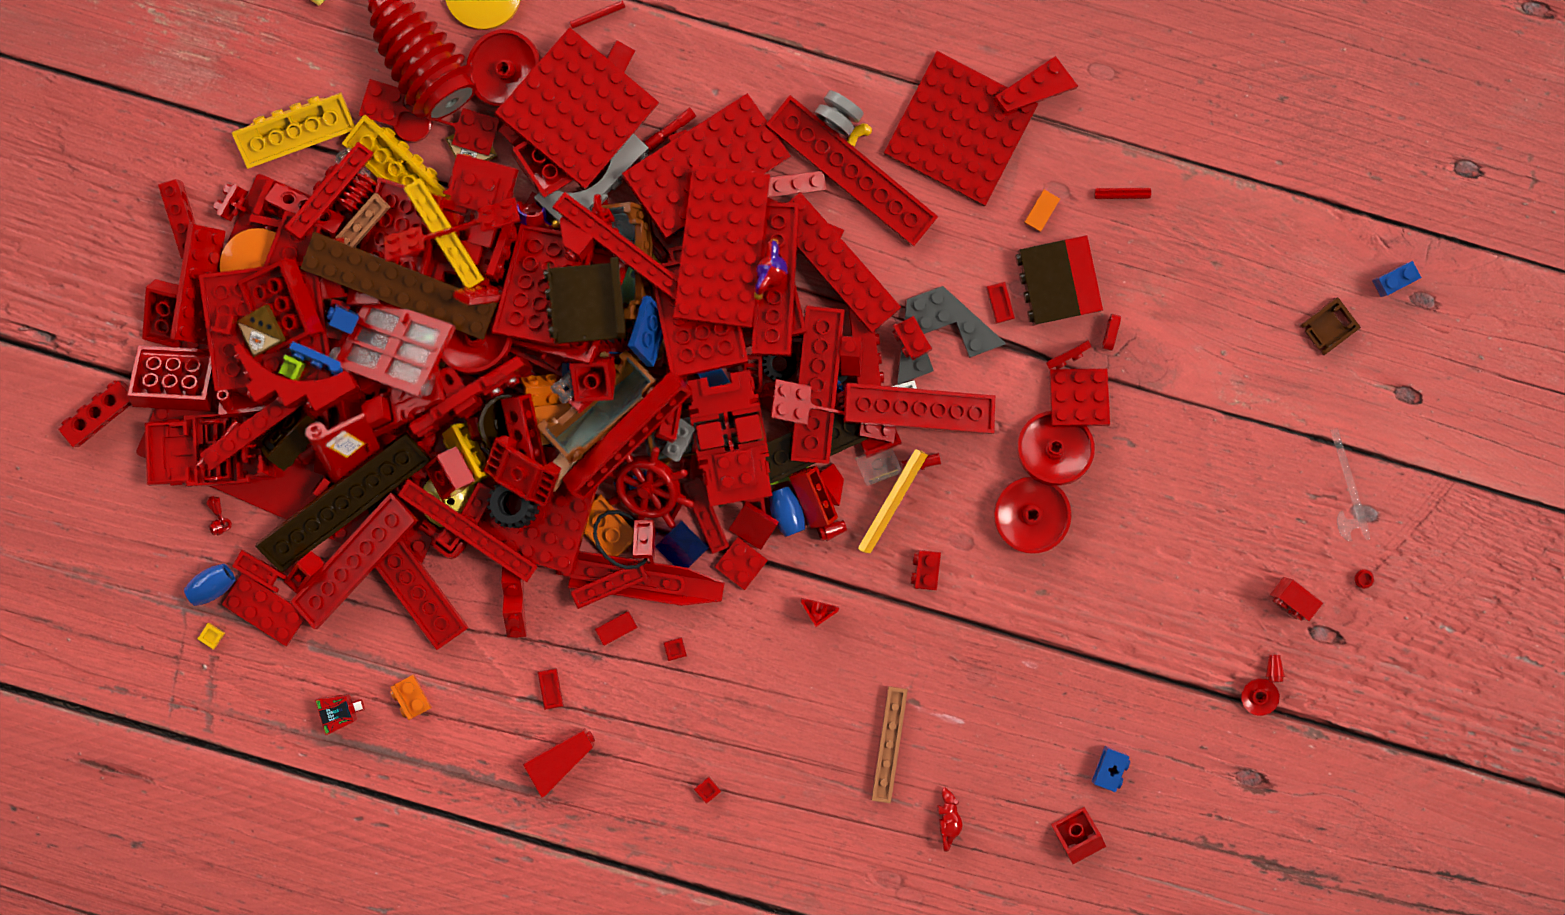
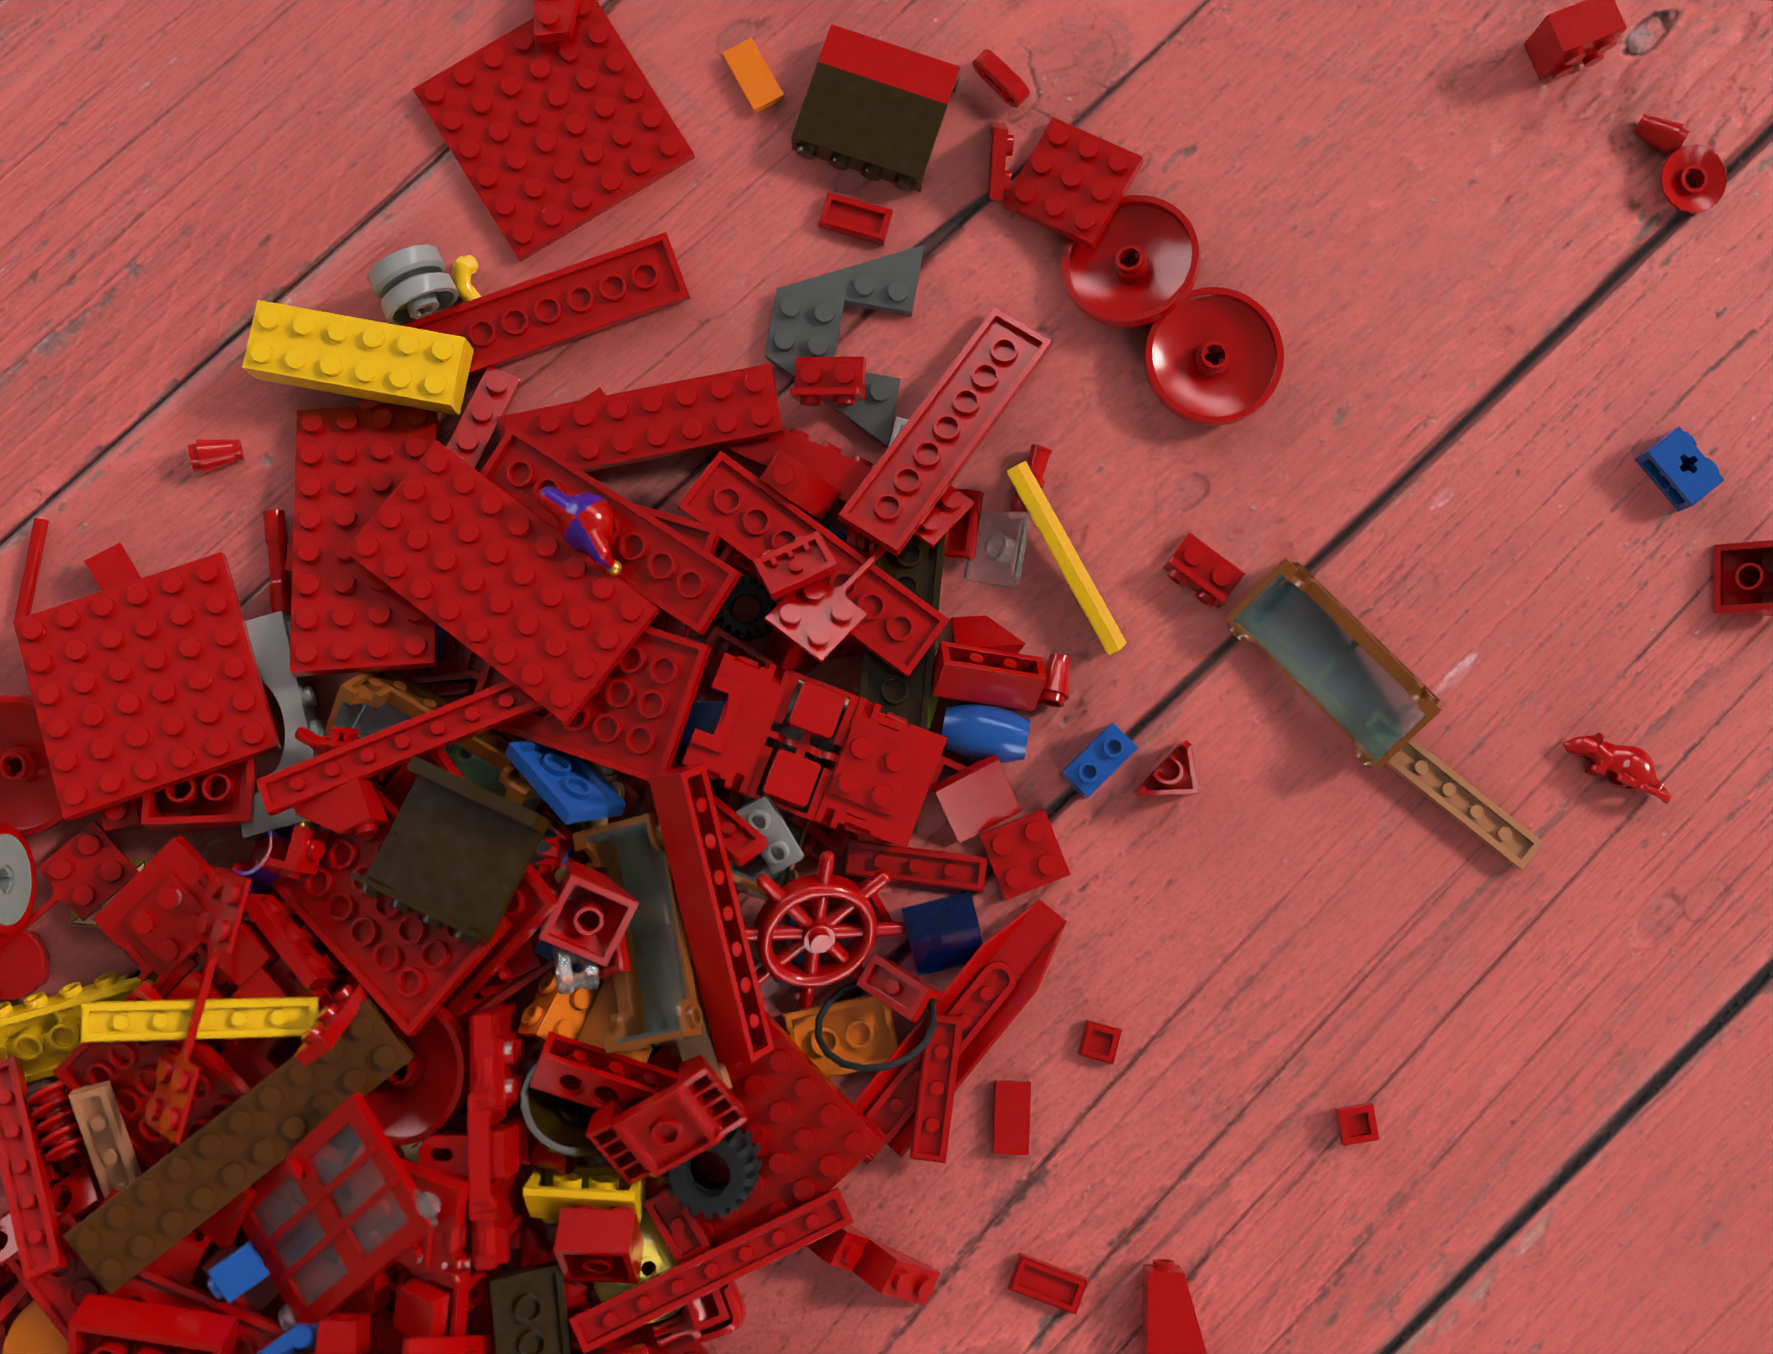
camera: 65 degrees left, 5 degrees down
(544, 232) = (303, 854): none -> red bracket
(703, 67) = (213, 454): none -> red cone
(788, 109) = (358, 357): none -> yellow brick
(805, 572) = (1098, 761): none -> blue brick
(809, 377) = (794, 565): none -> red bracket
(919, 656) = (1335, 661): none -> clear light blue windscreen

